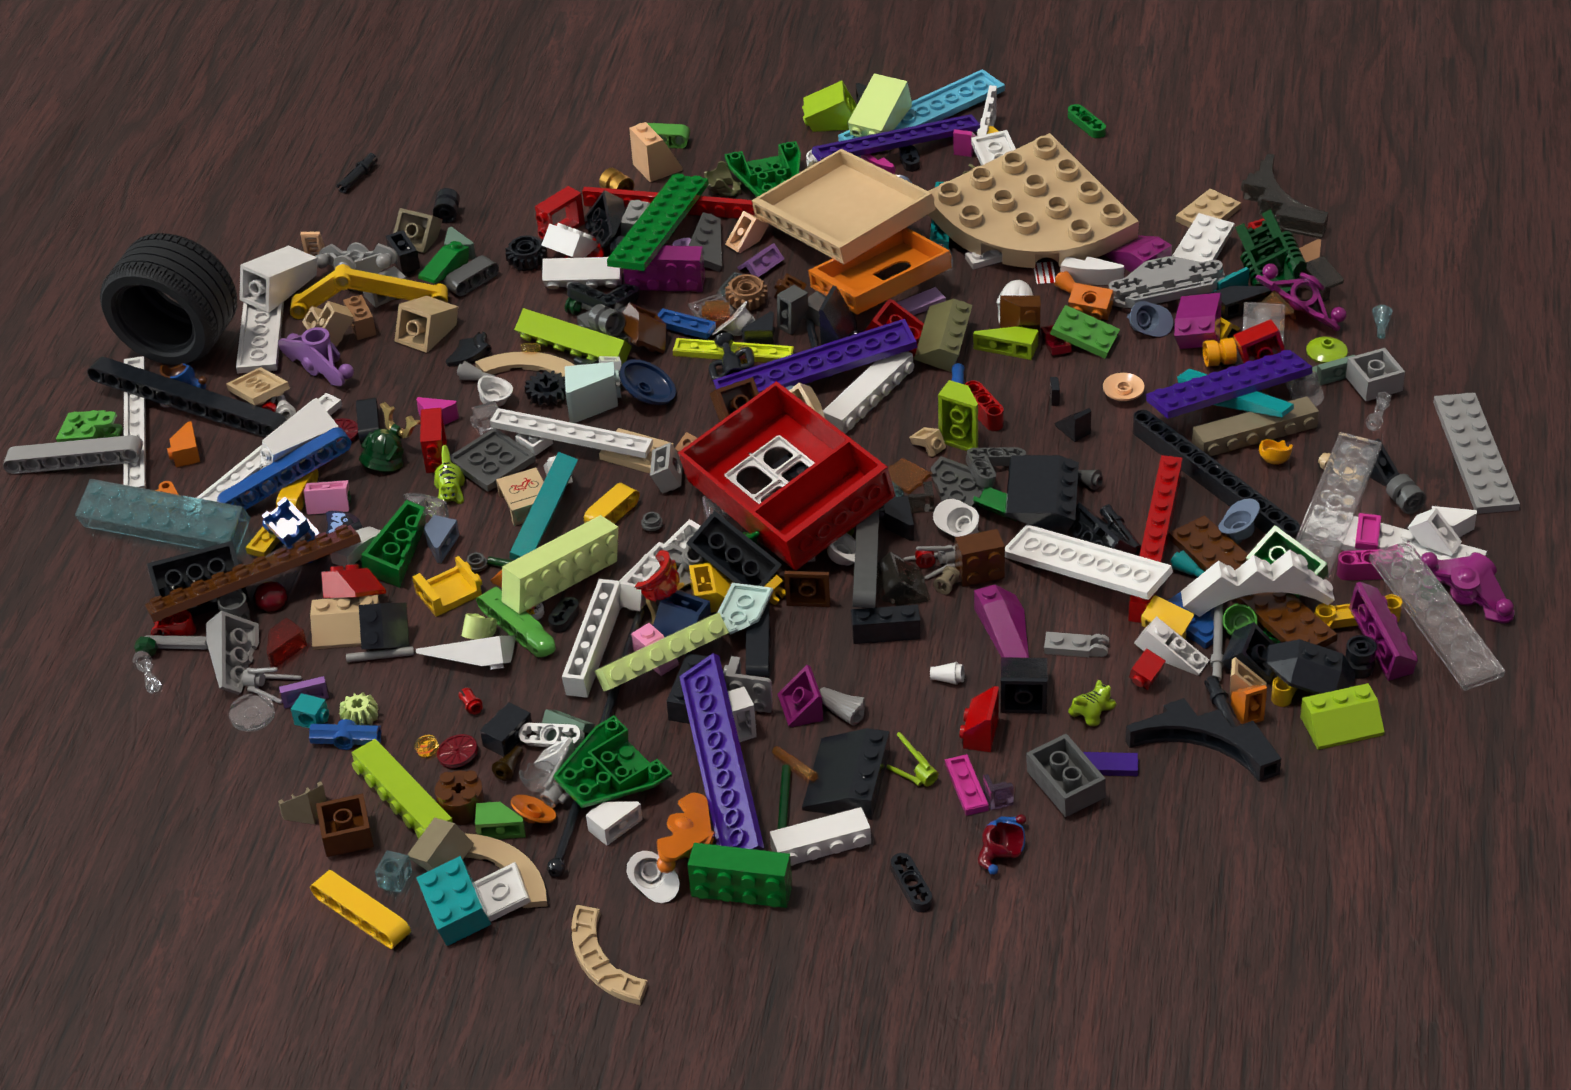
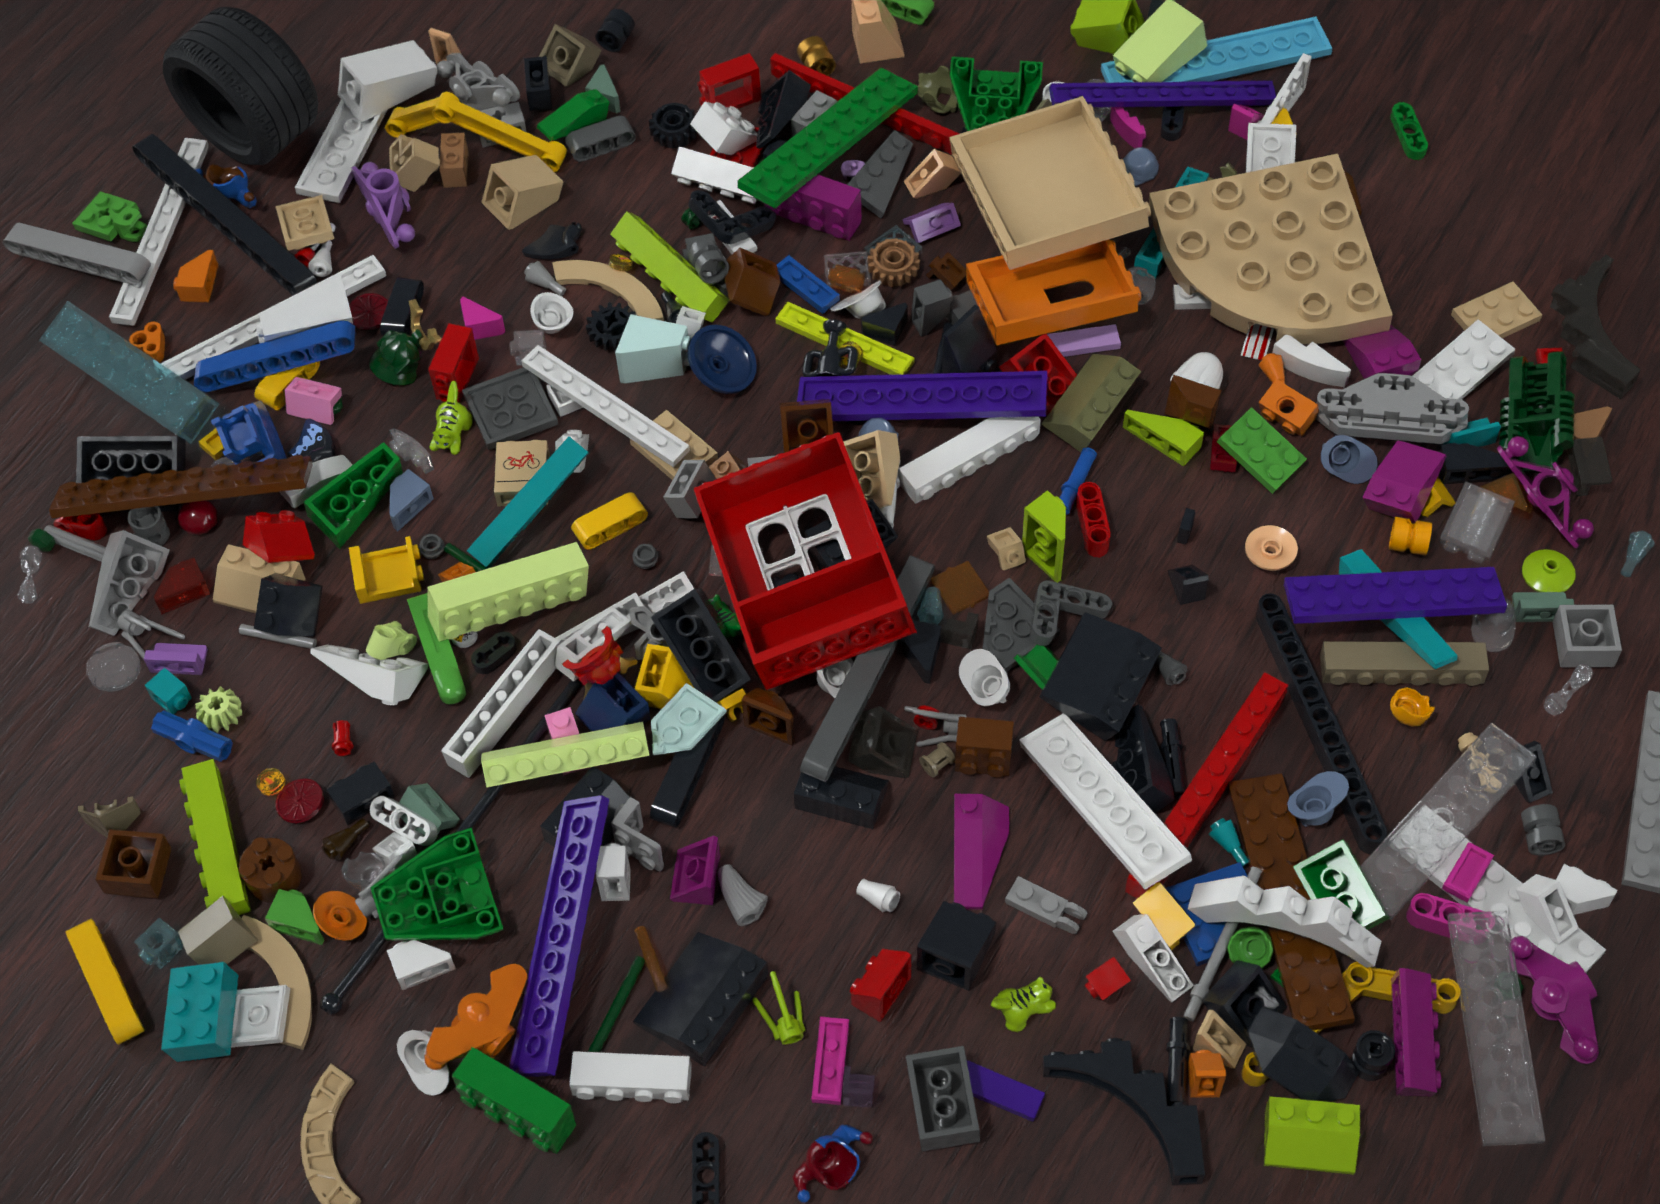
camera: 20 degrees right, 15 degrees up
(1259, 341) = (1458, 545): red slope -> none

